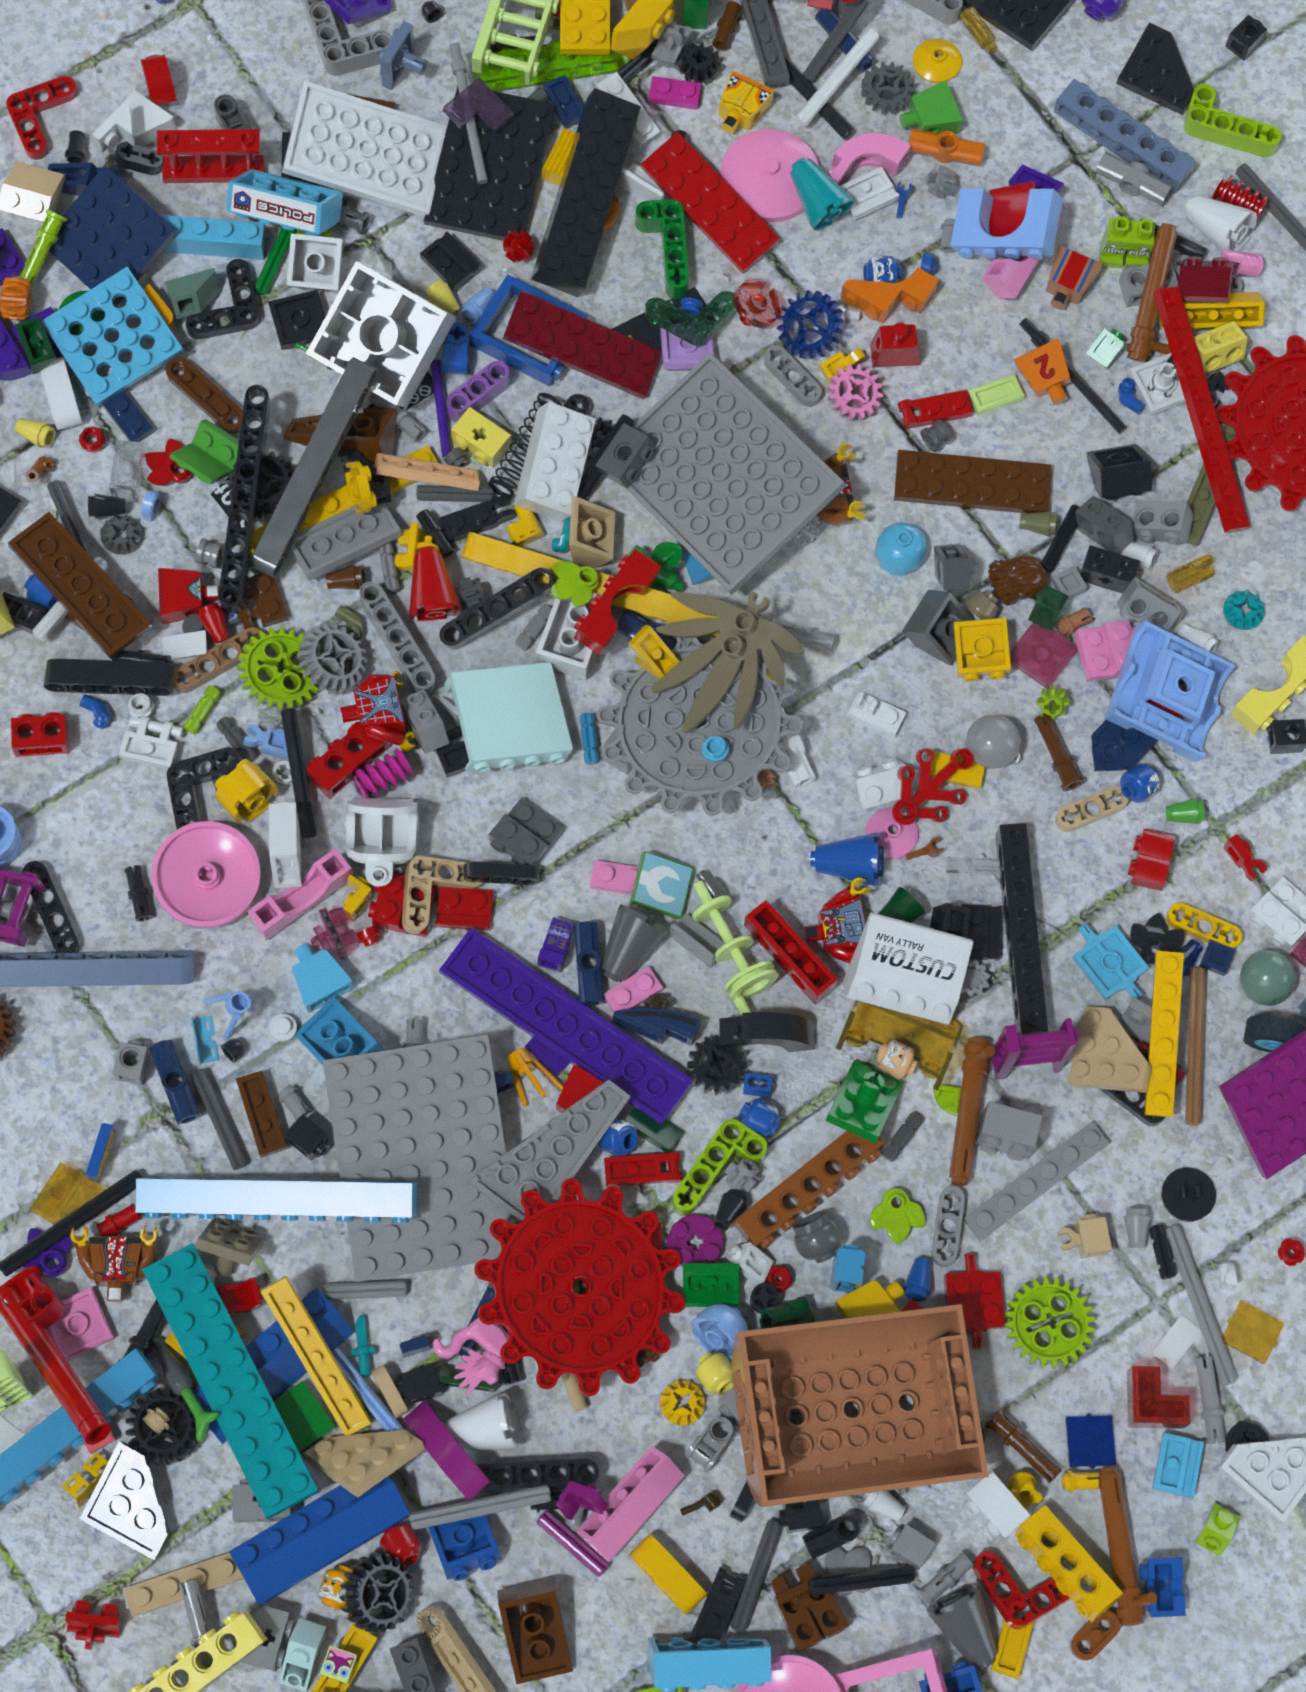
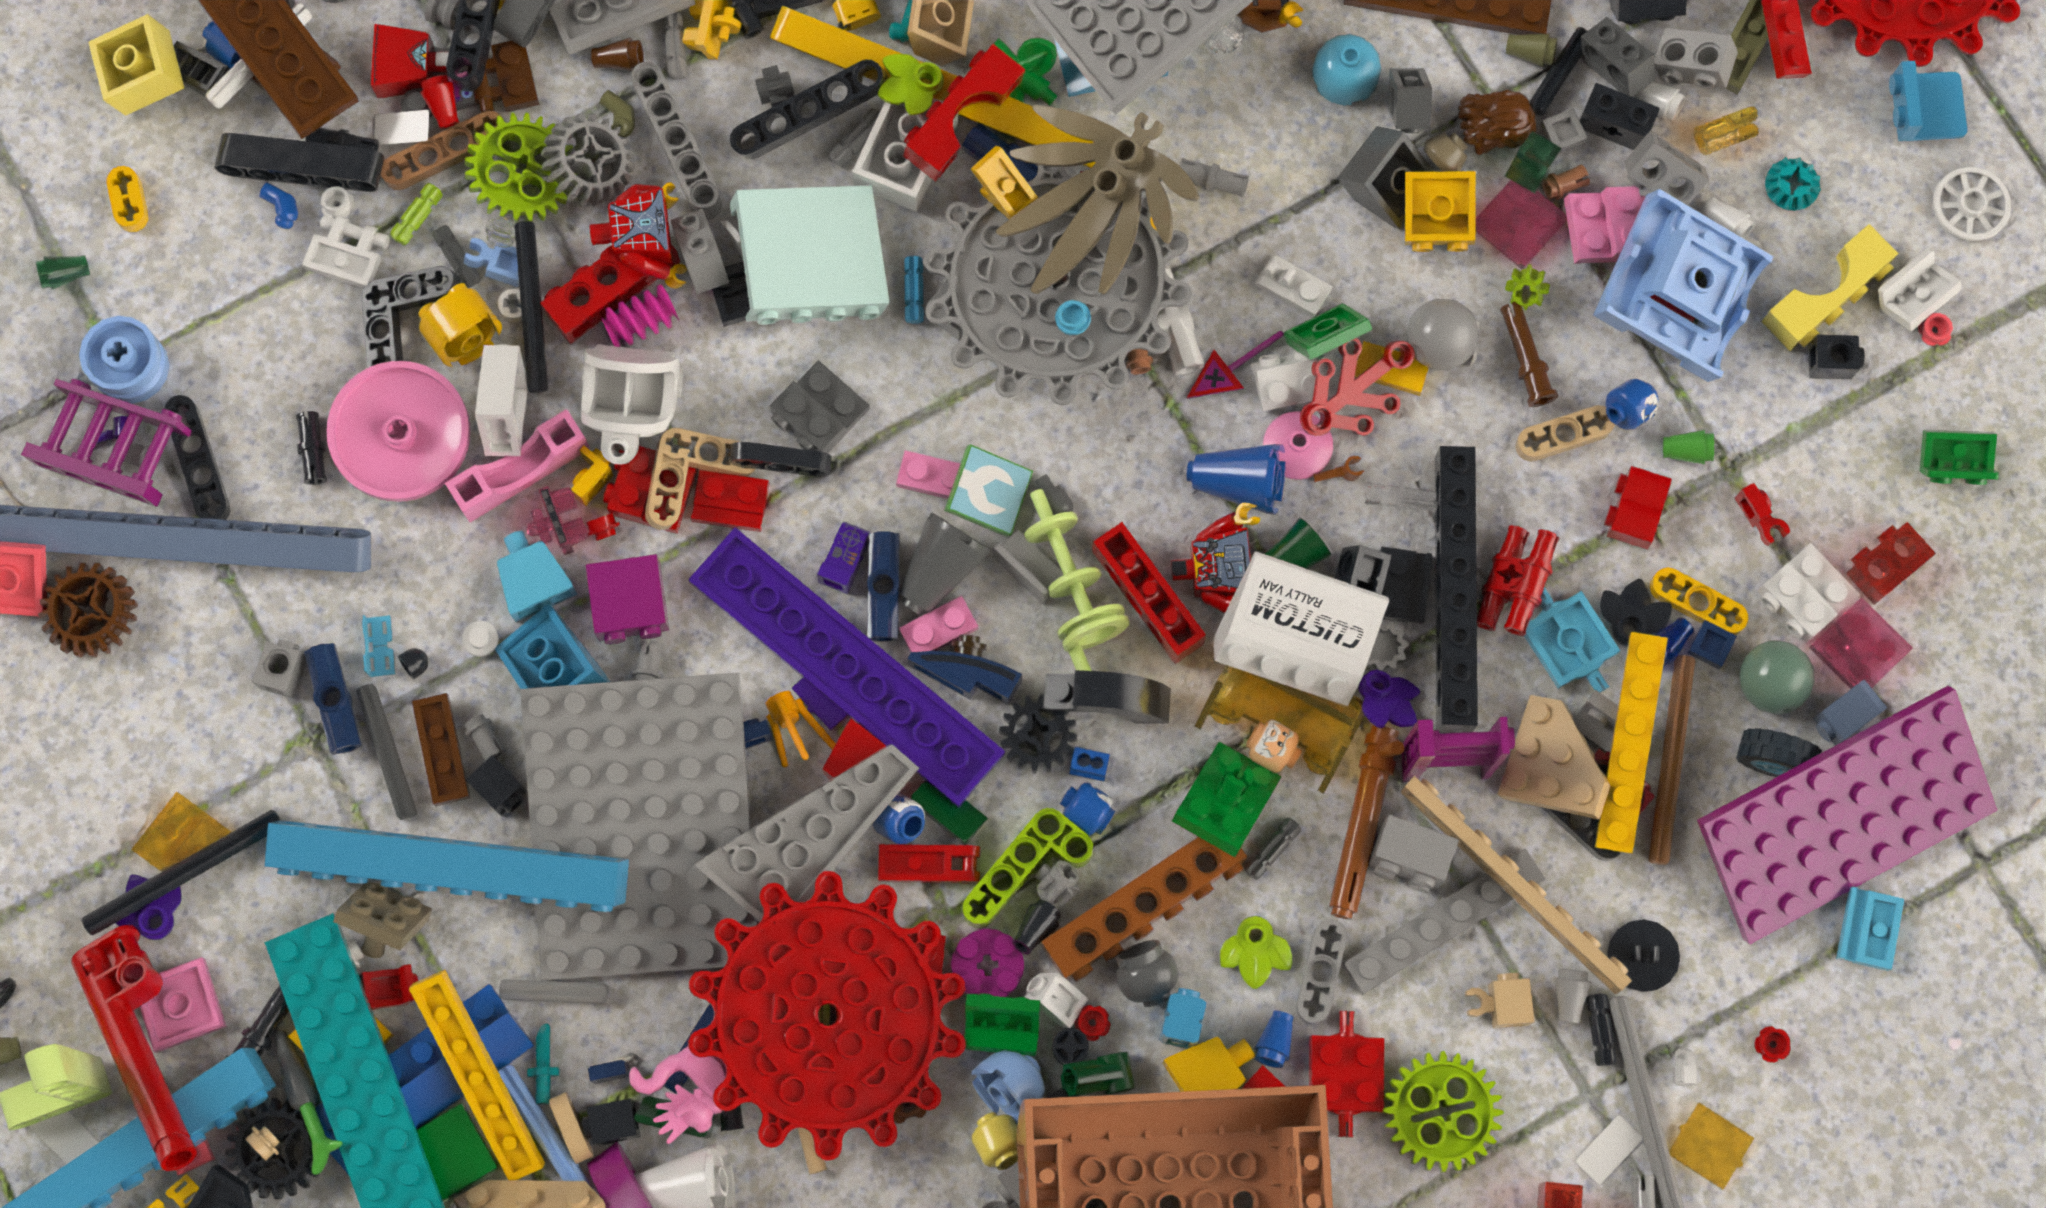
camera: 10 degrees right, 5 degrees up
(39, 742) = (202, 240): red brick -> none
(100, 1152) = (229, 783): blue tile -> none
(115, 1260) = (233, 924): torso -> none
(118, 1221) = (239, 877): red pin -> none
(235, 1005) = (417, 607): light blue plant -> none
(394, 988) = (627, 599): none -> magenta brick
(432, 587) = (725, 75): red cone -> none
(682, 1416) = (968, 1176): yellow gear -> none
(827, 787) = (1218, 377): none -> piece
(906, 745) = (1327, 331): none -> green tile
(948, 1098) = (1338, 802): lime tile -> none
(978, 1018) = (1388, 699): none -> dark purple plate
(1066, 920) = (1517, 580): none -> red pin
(1096, 1153) = (1527, 894): none -> tan plate
(1118, 748) = (1608, 355): dark blue tile -> none

